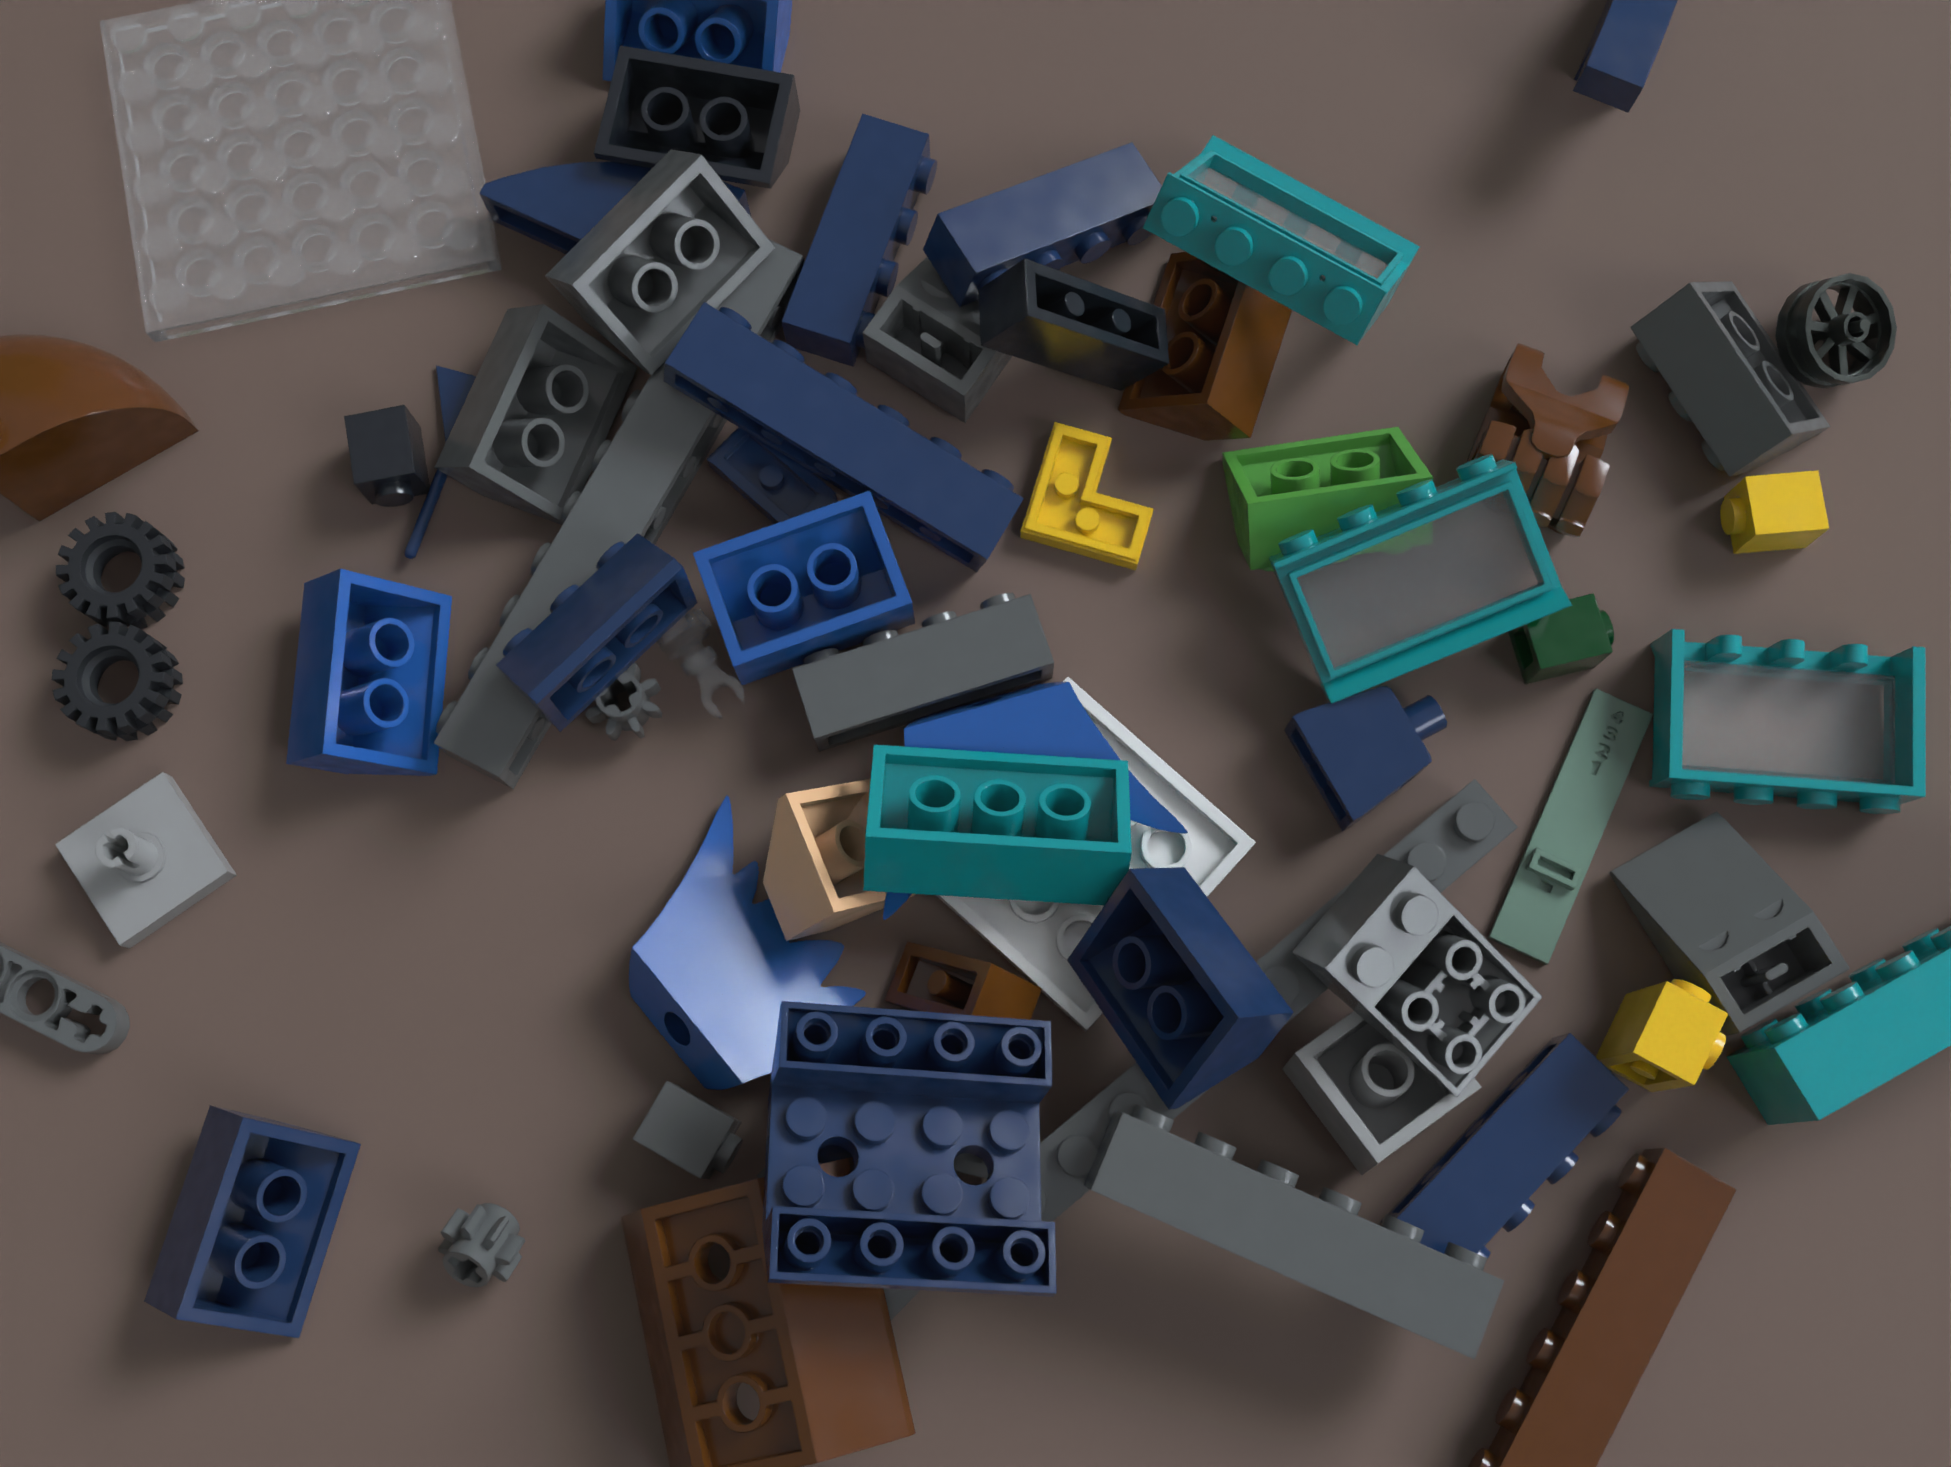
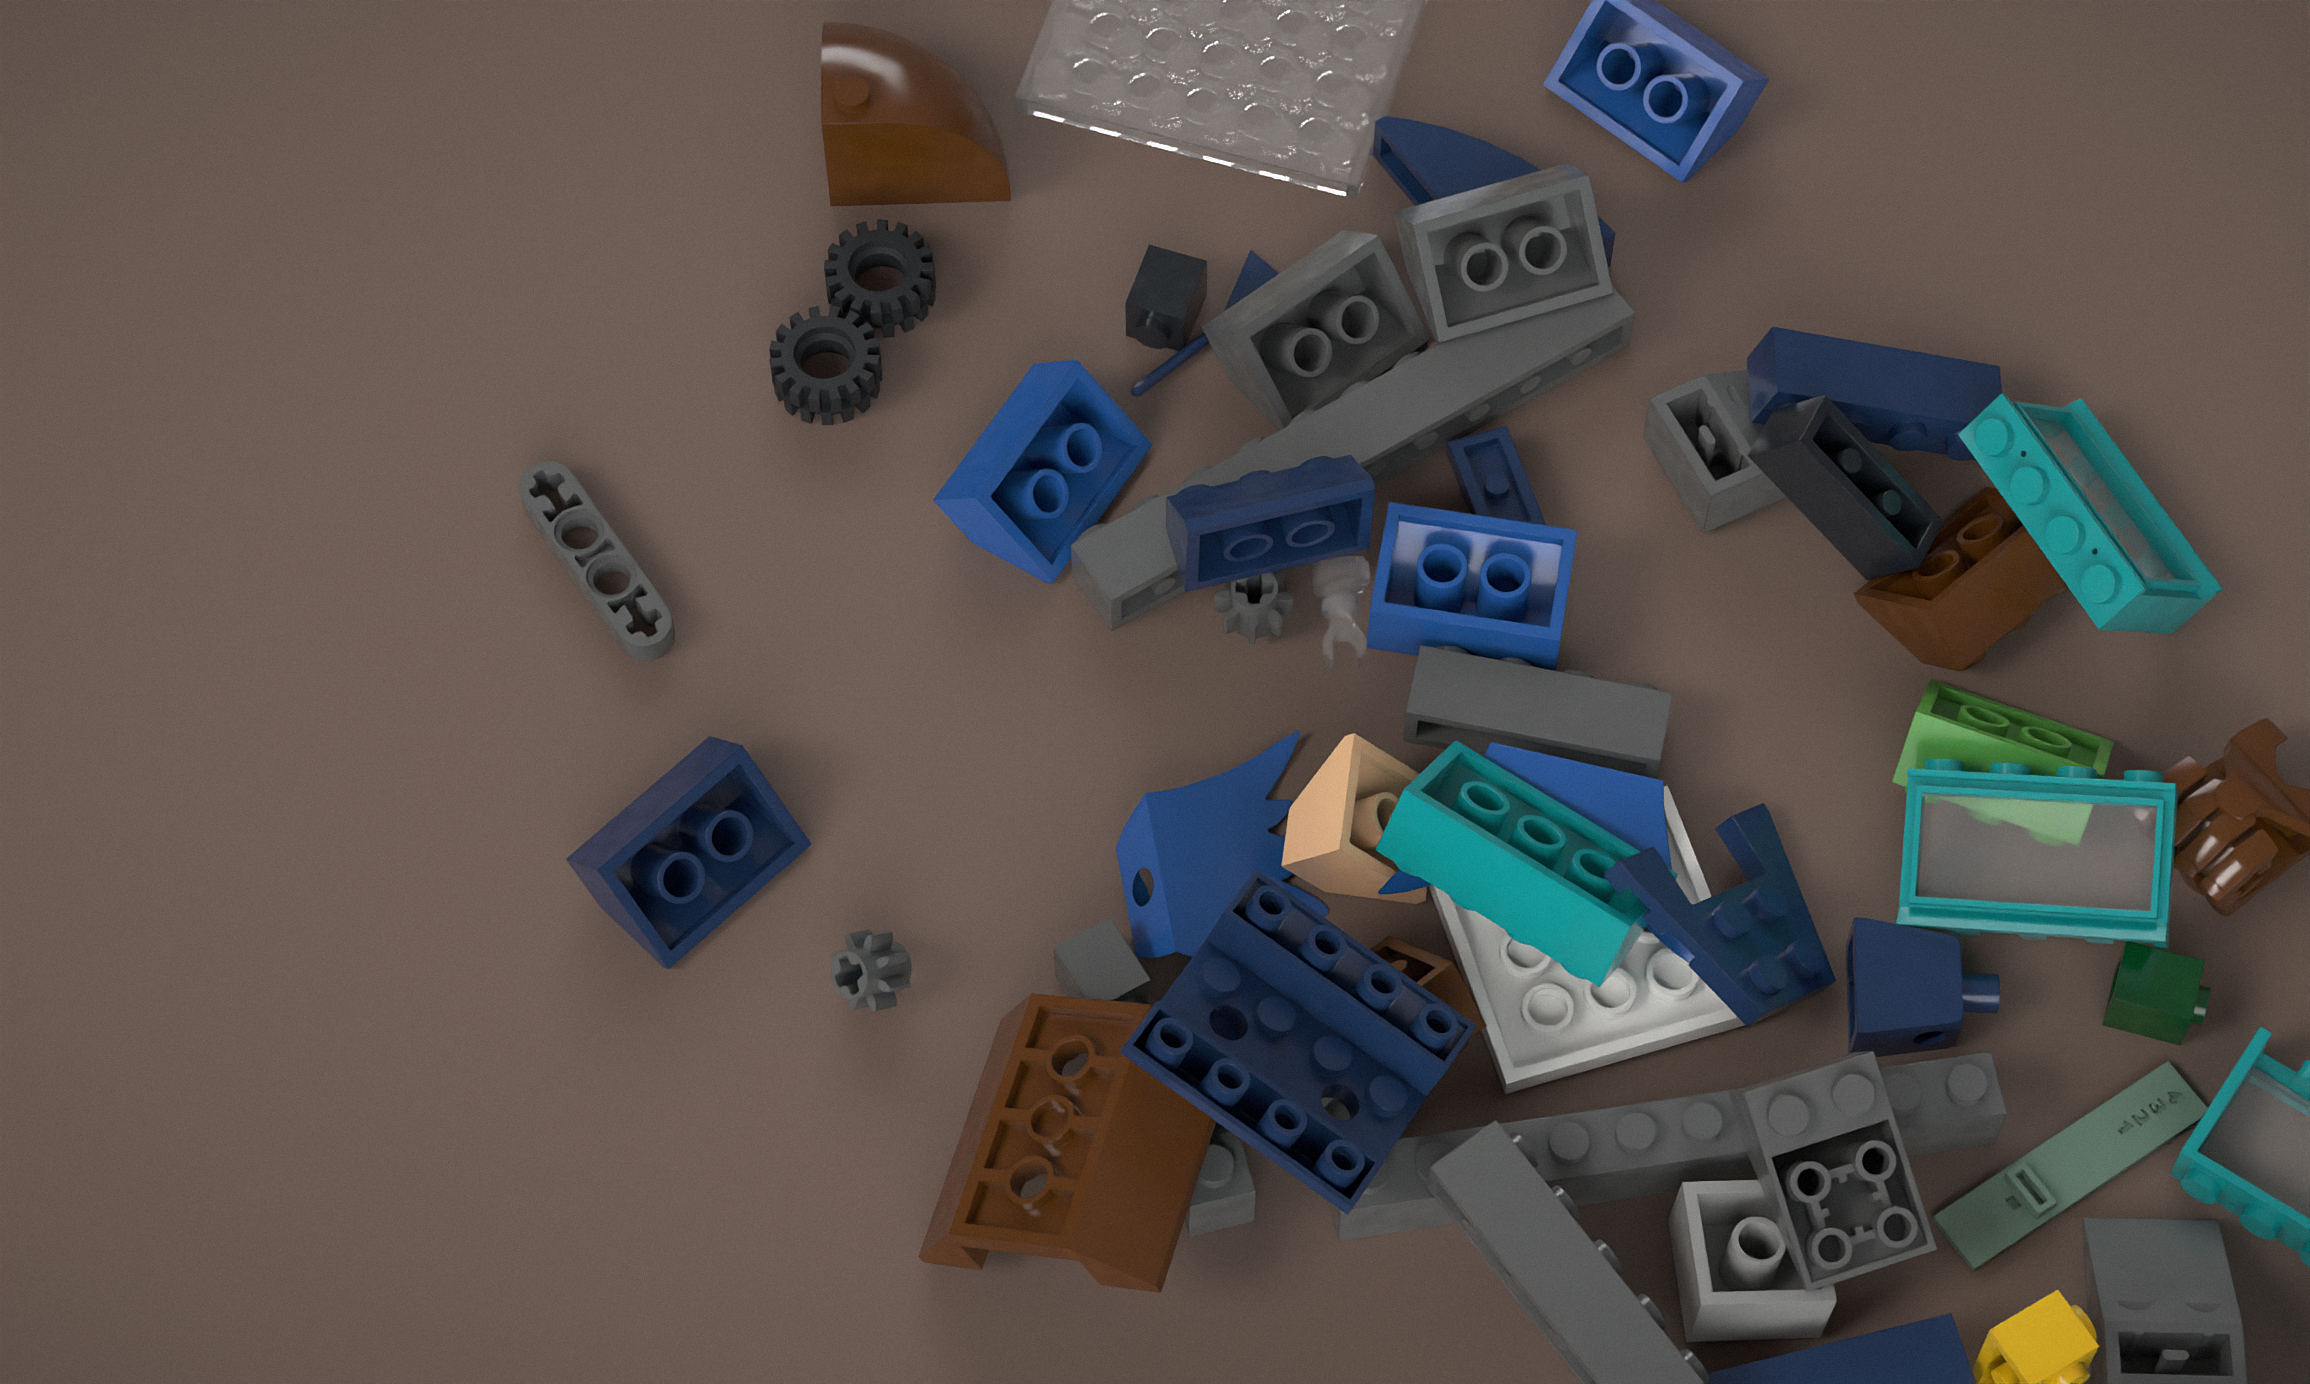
camera: 30 degrees right, 15 degrees down
(145, 860) = (764, 521): light grey tile -> none
(726, 112) = (1638, 166): black slope -> none
(841, 435) = (1581, 480): dark blue brick -> none
(859, 239) = (1697, 326): dark blue brick -> none
(1071, 513) = (1758, 657): yellow tile -> none
(1177, 984) = (1609, 1062): dark blue slope -> none
(1223, 782) = (1749, 941): none -> dark blue wing

